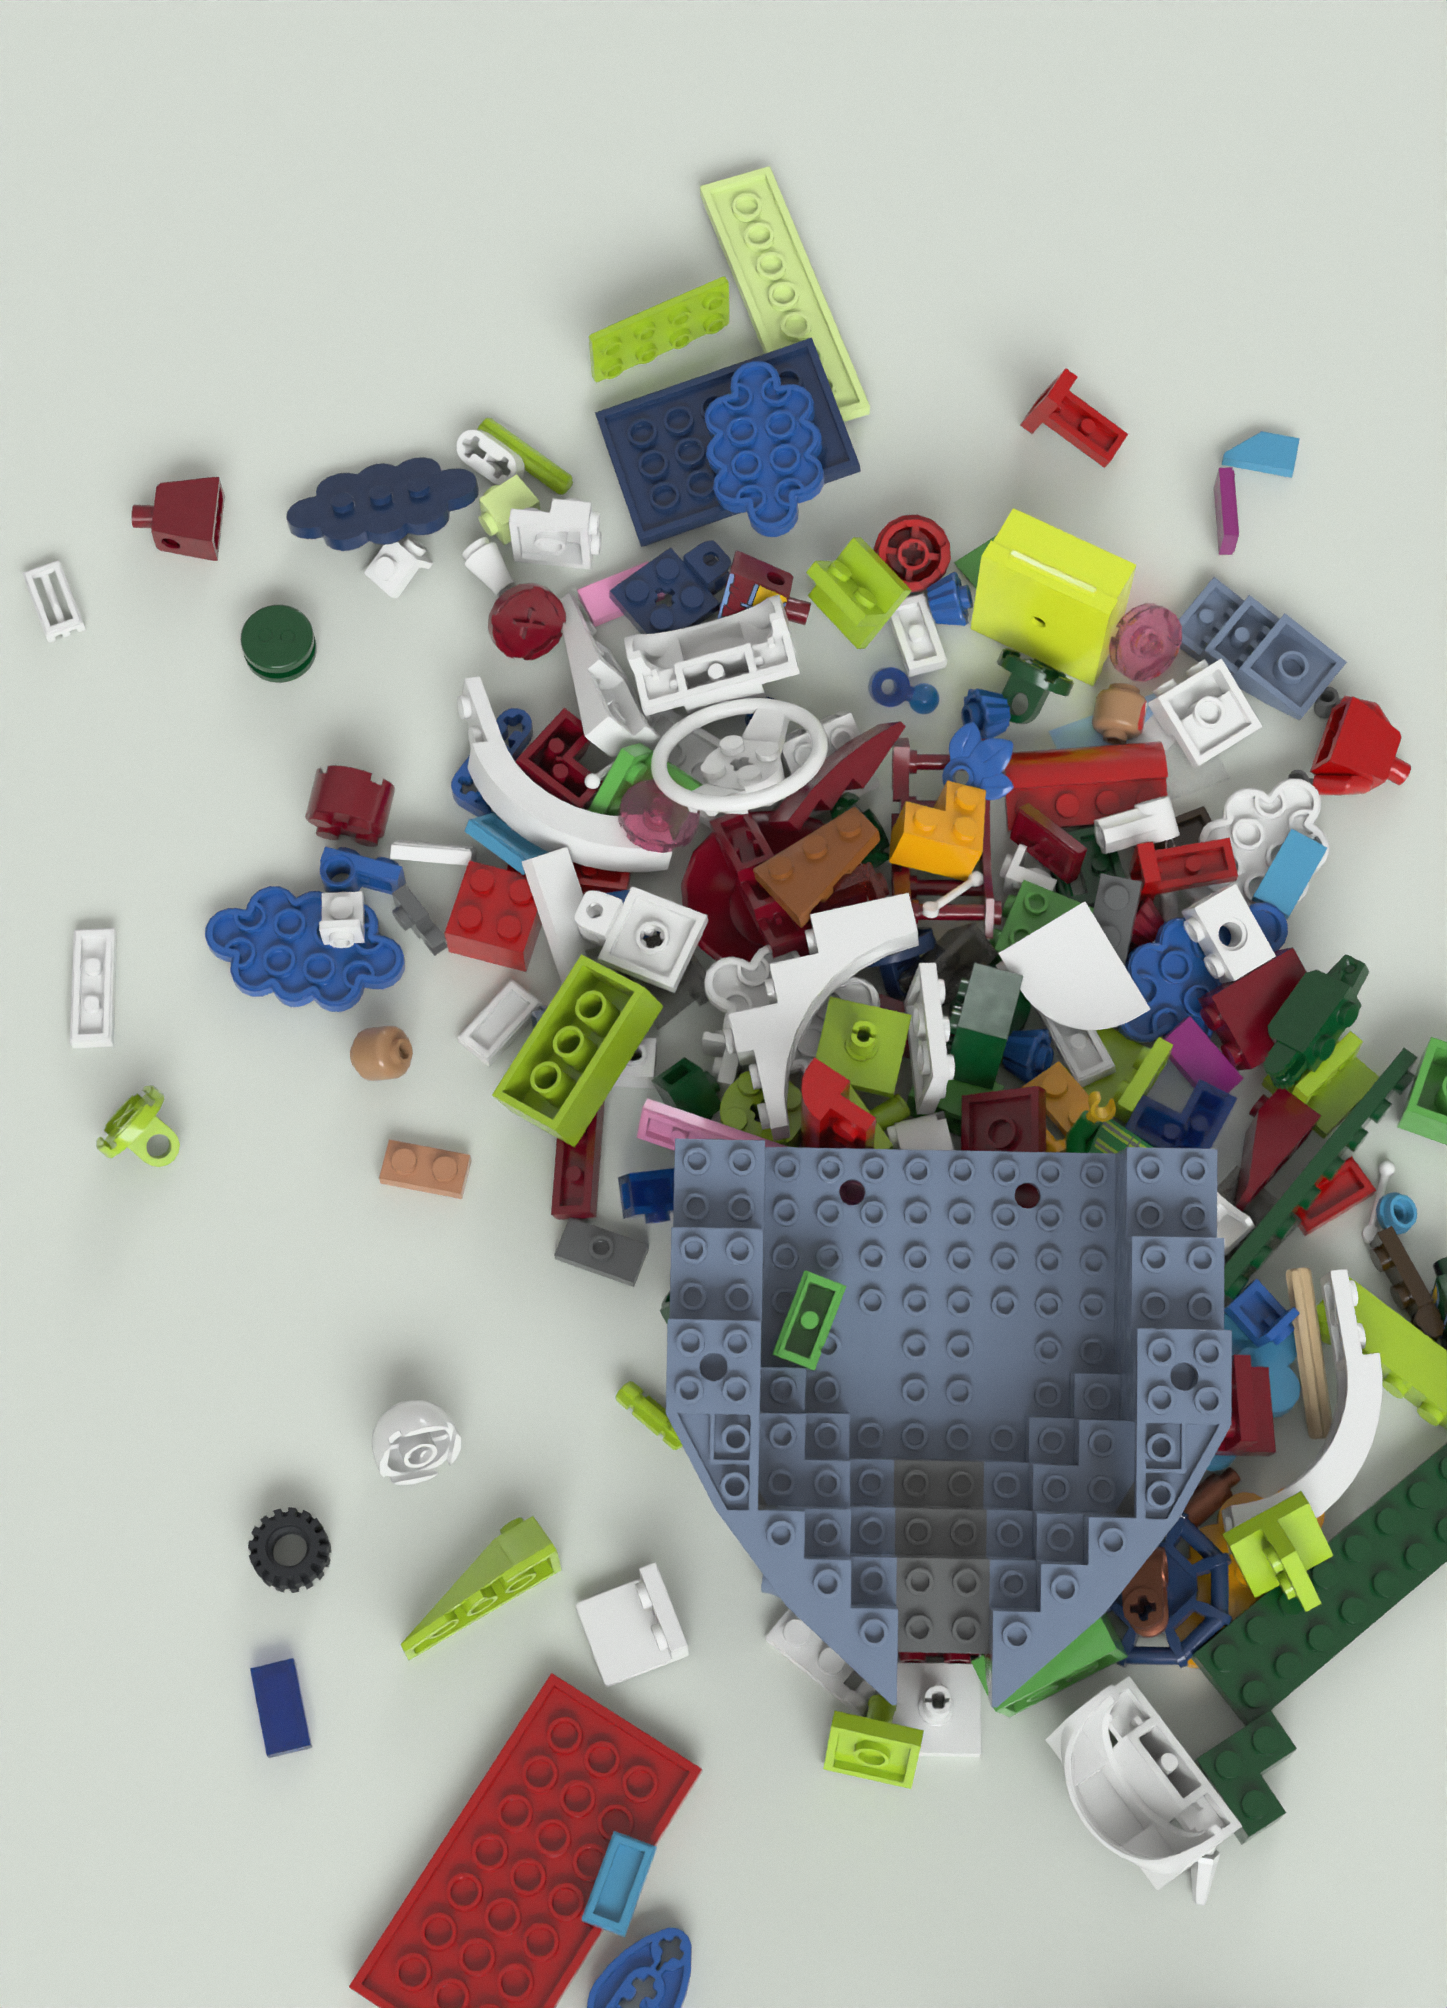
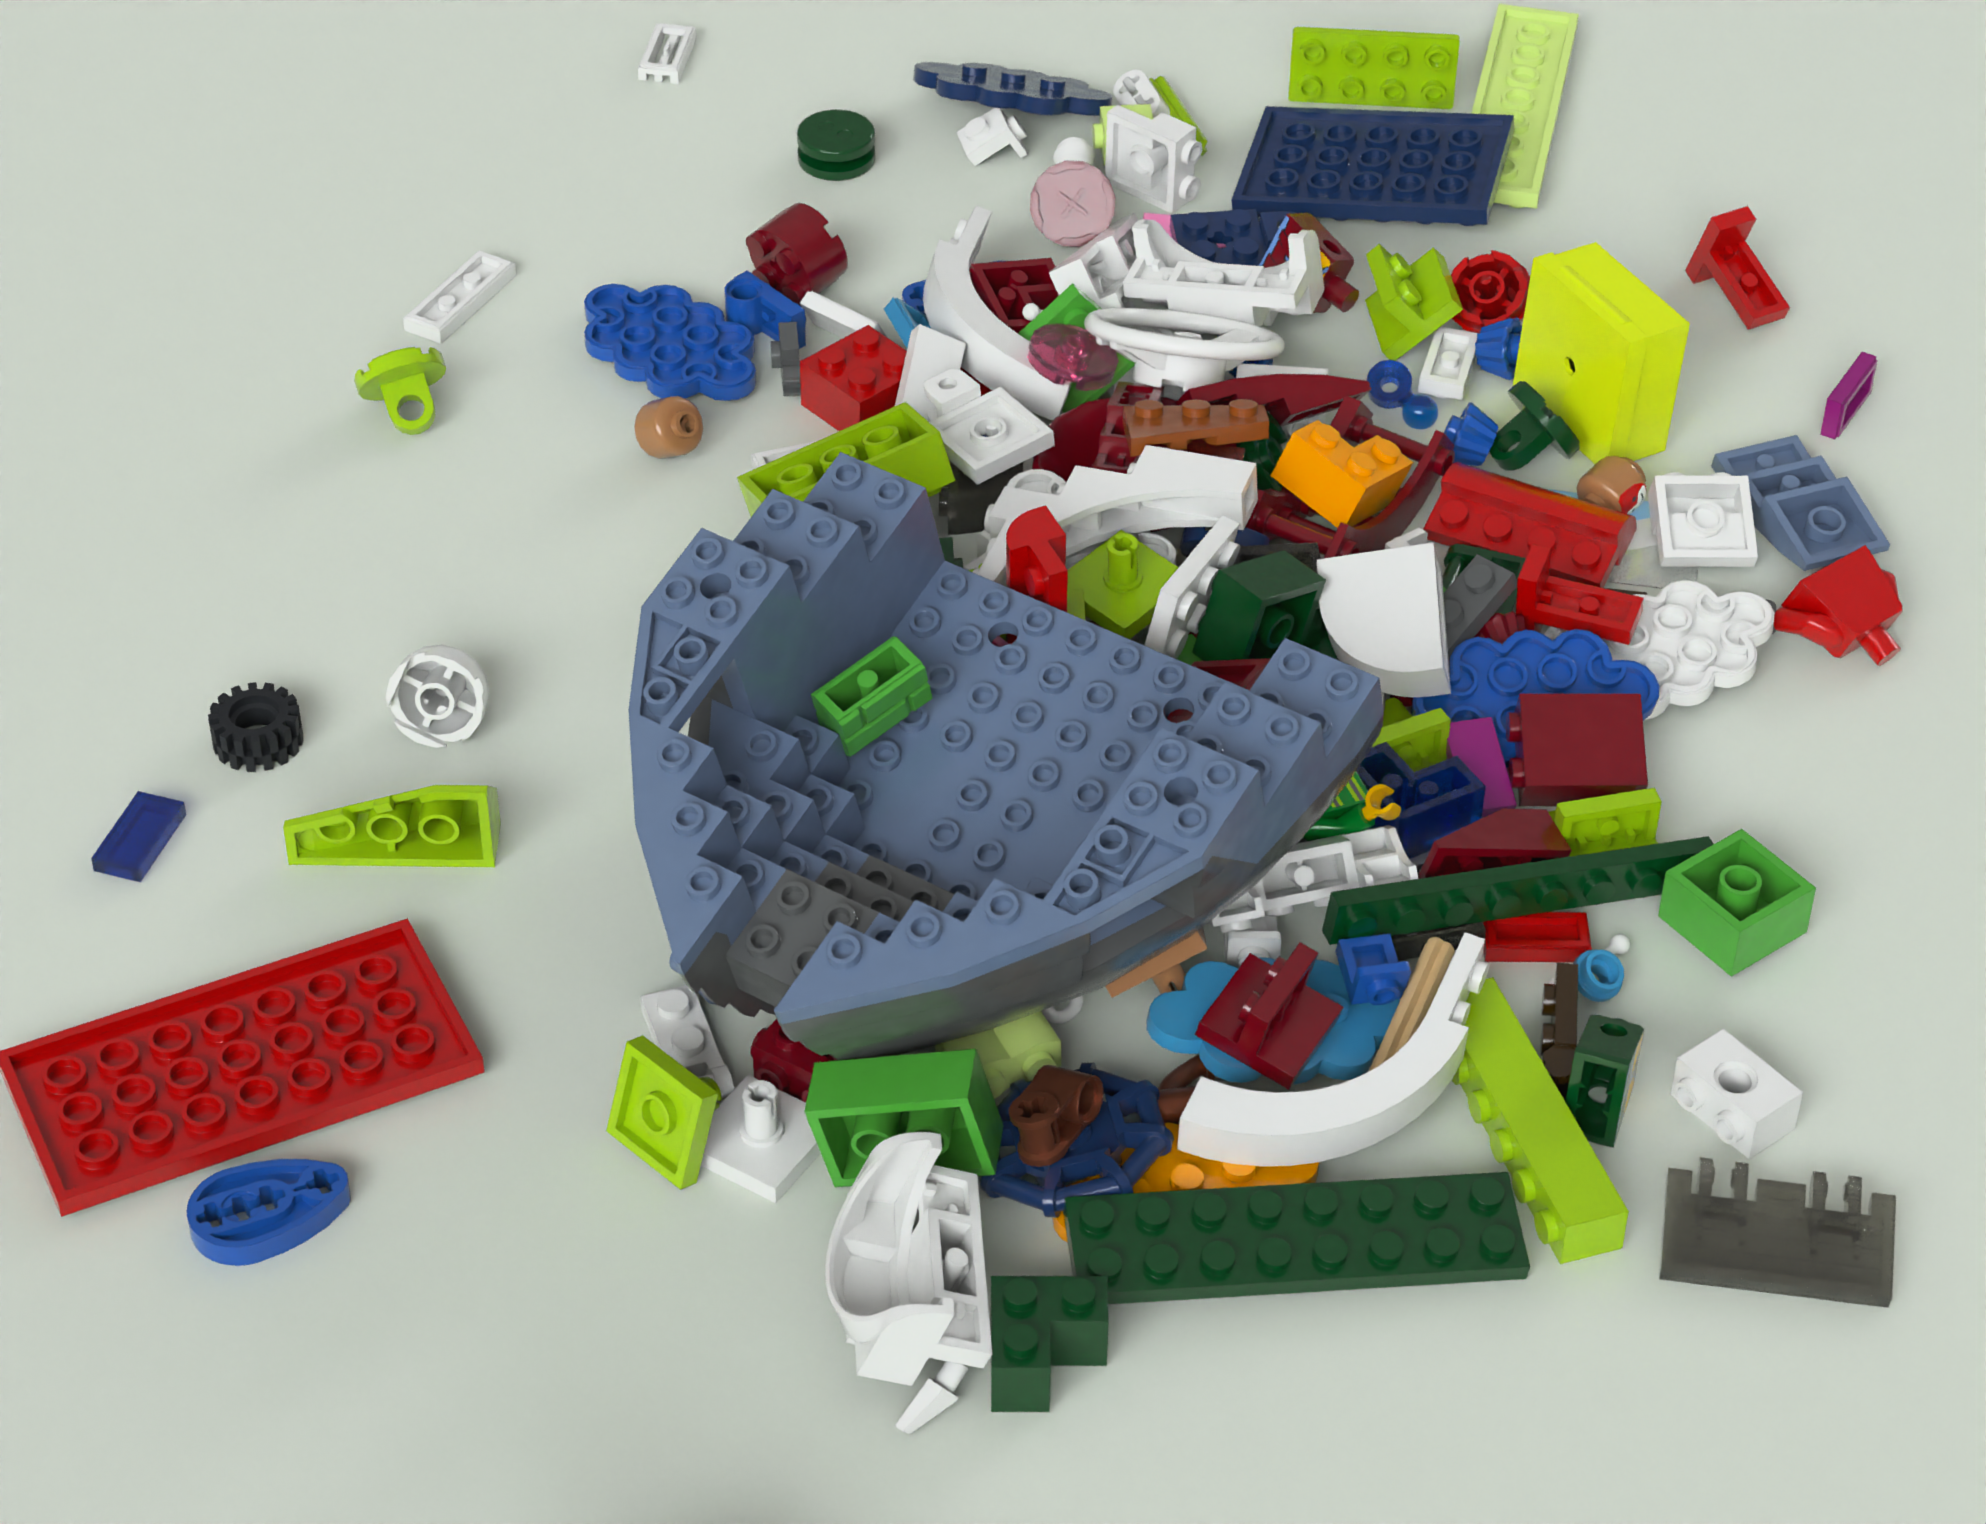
camera: 30 degrees right, 25 degrees down
(185, 517) = (831, 39): dark red torso -> none
(342, 919) = (716, 324): white bracket -> none
(425, 1169) = (637, 532): nougat plate -> none
(619, 1884) = (318, 1098): dark azure tile -> none
(632, 1628) = (521, 929): white bracket -> none
(764, 448) = (1400, 166): blue plate -> none
(931, 909) = (1284, 516): white hinge -> none
(981, 760) = (1424, 437): blue plate -> none
(1048, 843) = (1452, 535): dark red plate -> none
(1145, 642) = (1666, 420): clear pink plate -> none
(1145, 823) = (1573, 558): white piece -> none
(1247, 945) = (1582, 632): white brick -> none
(1265, 454) = (1927, 378): dark azure tile -> none
(1280, 1549) = (1225, 1132): lime bracket -> none
(1290, 872) = (1694, 660): dark azure tile -> none
(1313, 1020) = (1614, 751): dark green hinge -> none

